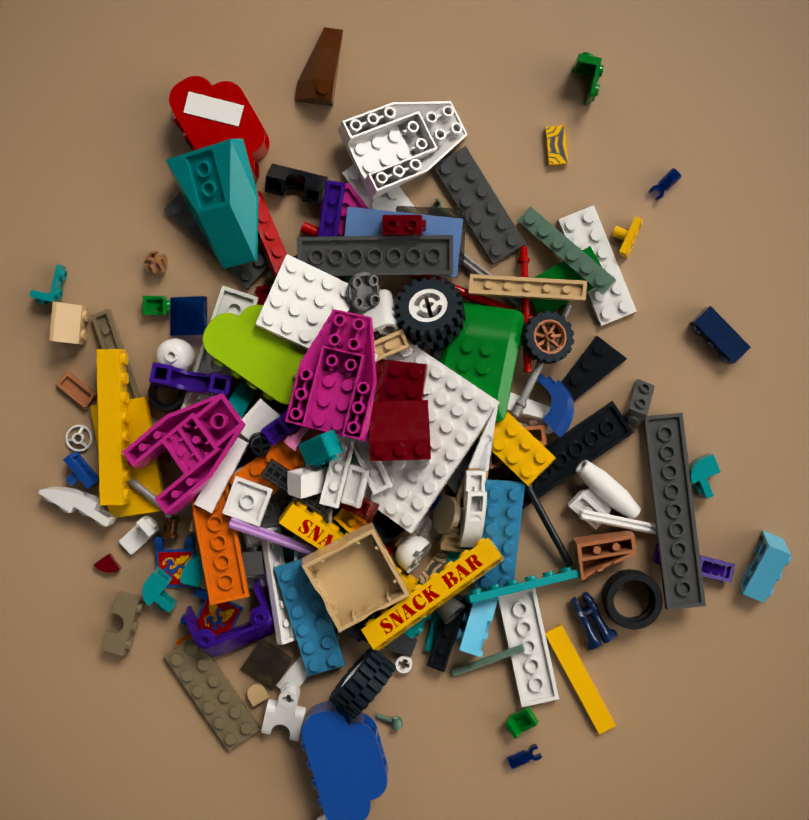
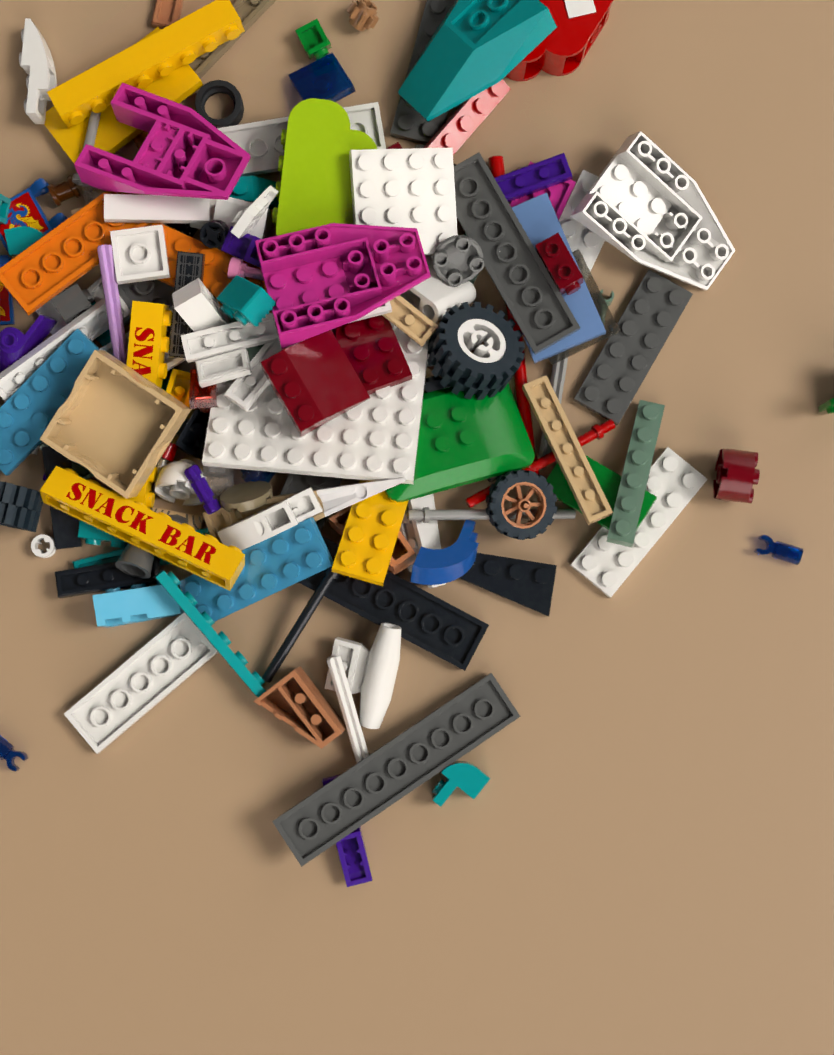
camera: 60 degrees right, 5 degrees down
(81, 471) = (77, 55): blue tile -> none
(82, 438) = (121, 33): white piece -> none
(140, 534) = (37, 160): white bracket -> none
(176, 353) = (266, 93): white cylinder -> none
(179, 379) = (244, 115): dark purple arch -> none
(262, 415) = (247, 219): none -> white wing
(282, 178) = (537, 104): black arch -> none
(320, 73) = (686, 86): reddish brown wedge -> none
(426, 541) = (202, 489): none -> dark purple axle
(488, 660) = (100, 643): sand green bar -> none
(521, 721) = (45, 722): green bracket -> none
(556, 145) = (752, 399): tile -> none
(580, 679) = (134, 768): yellow tile -> none
(581, 613) = (189, 755): dark blue piece -> none
(603, 185) = (736, 475): none -> dark red brick
(628, 236) = (692, 539): yellow tile -> none
(639, 403) = (503, 658): dark grey bracket -> none
(650, 613) = (232, 785): black tyre -> none
(719, 335) = (636, 711): dark blue brick -> none
(766, 567) = (387, 919): medium azure wedge -> none

